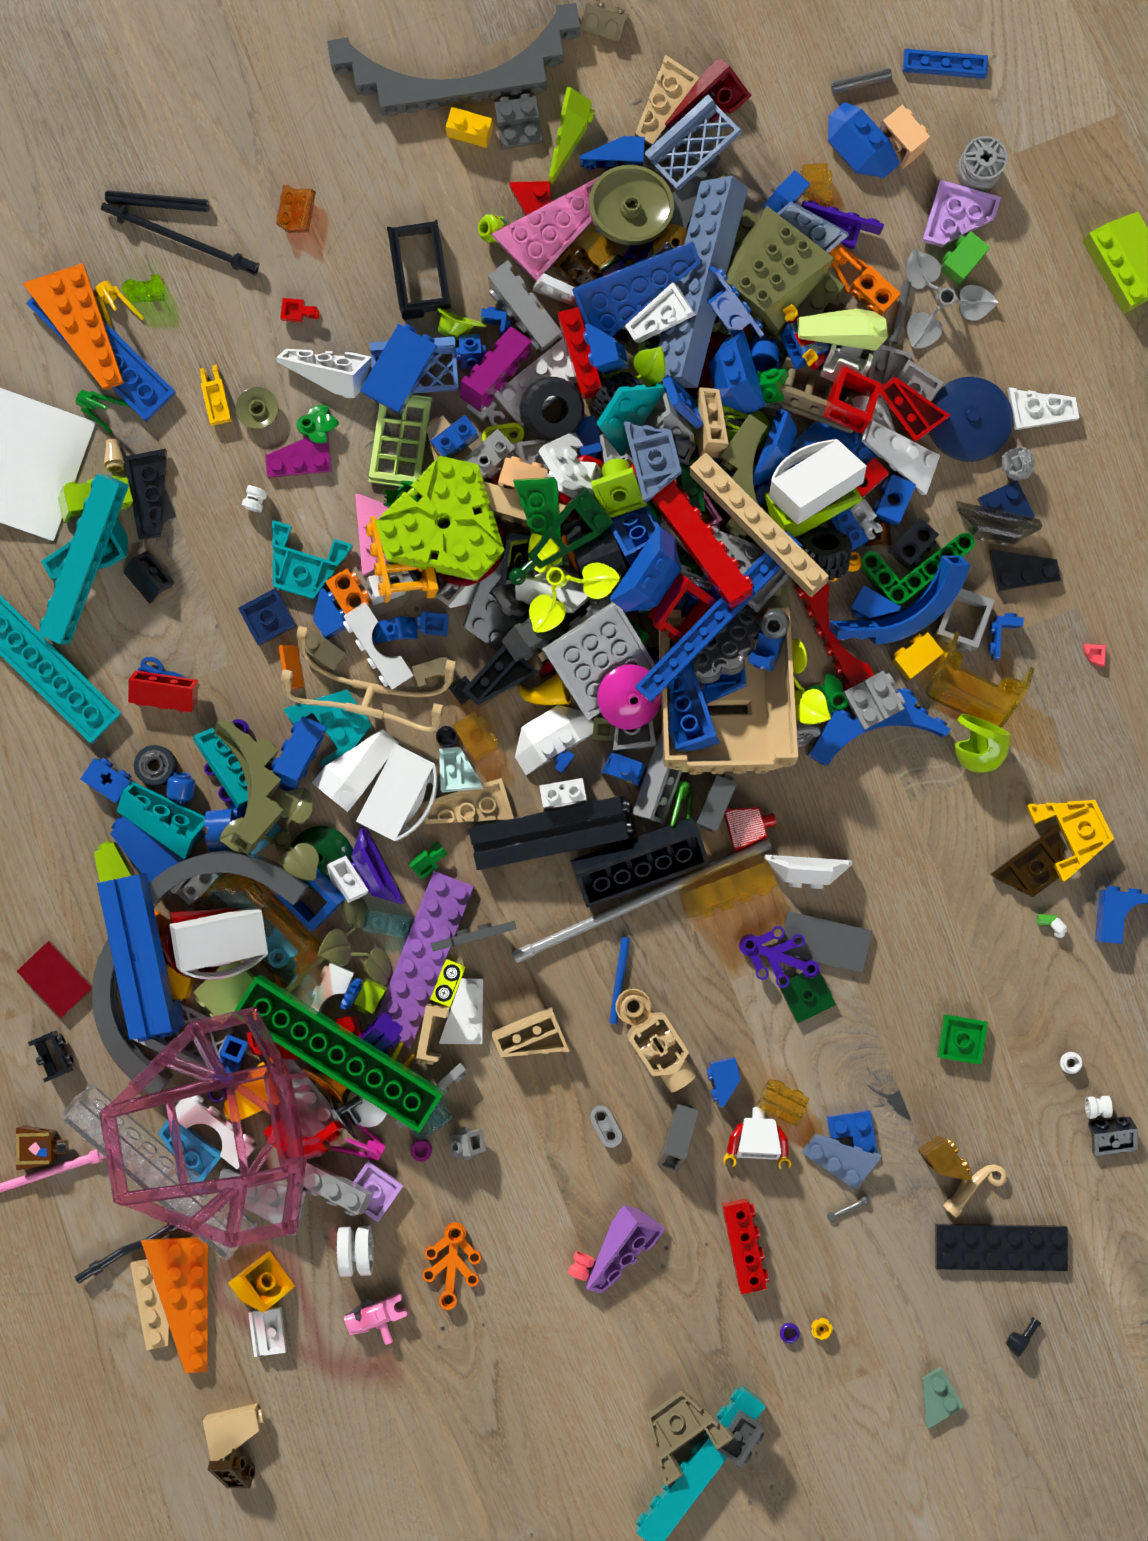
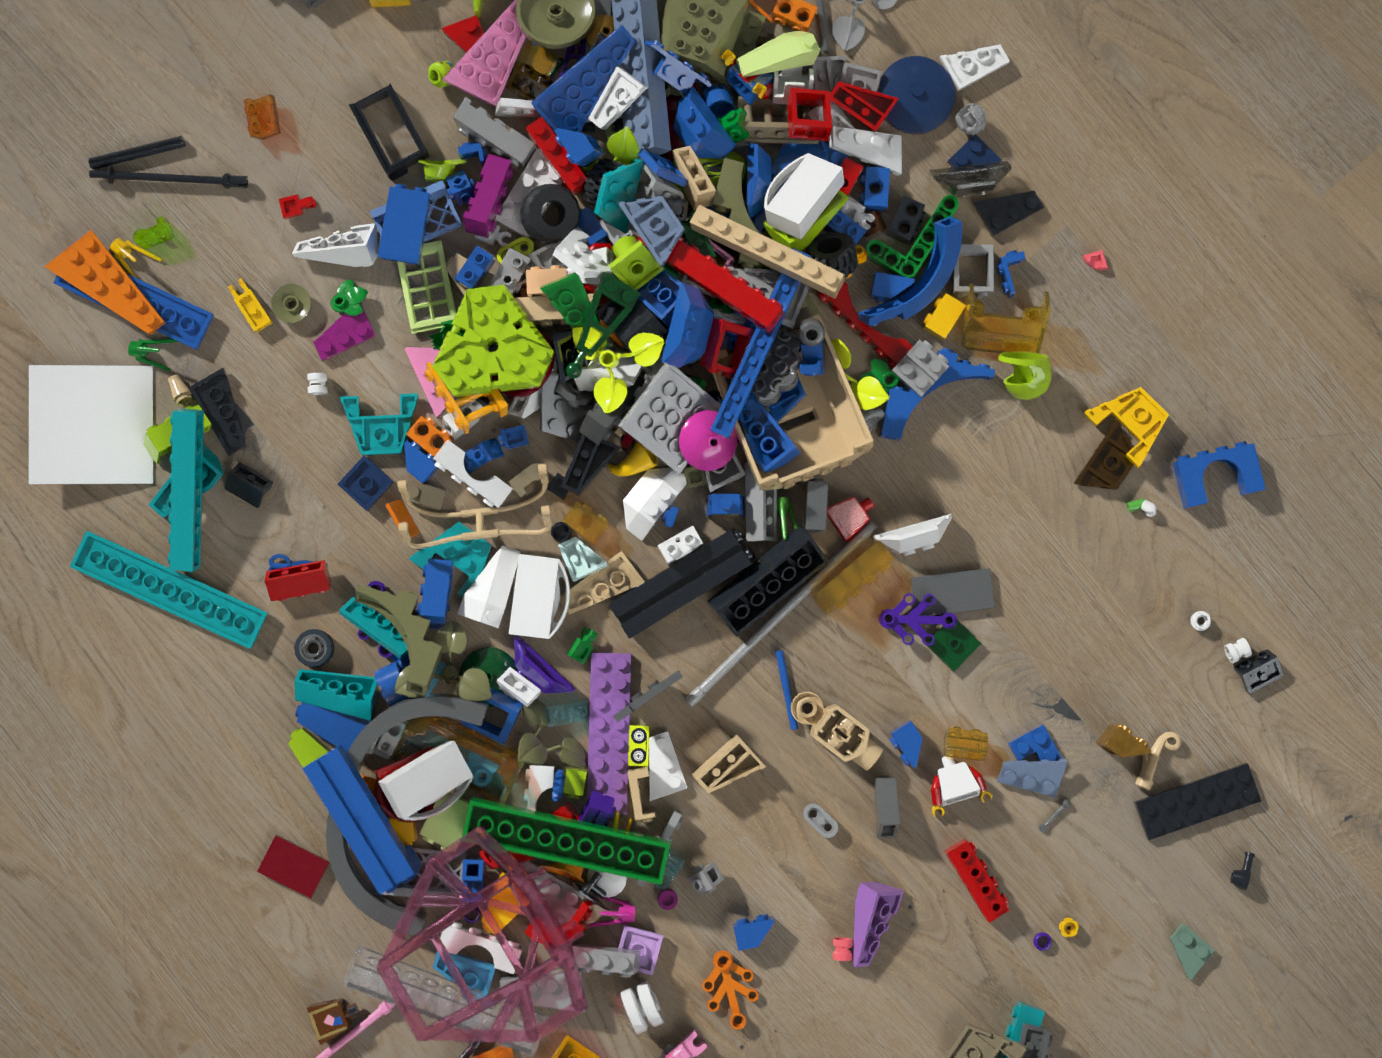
camera: 25 degrees left, 0 degrees up
(45, 1058) = (310, 939): black window -> none
(96, 775) = (265, 675): blue brick -> none
(180, 787) = (343, 659): blue head -> none
(493, 1215) = (751, 933): none -> blue slope
(962, 1039) = (1100, 634): green plate -> none

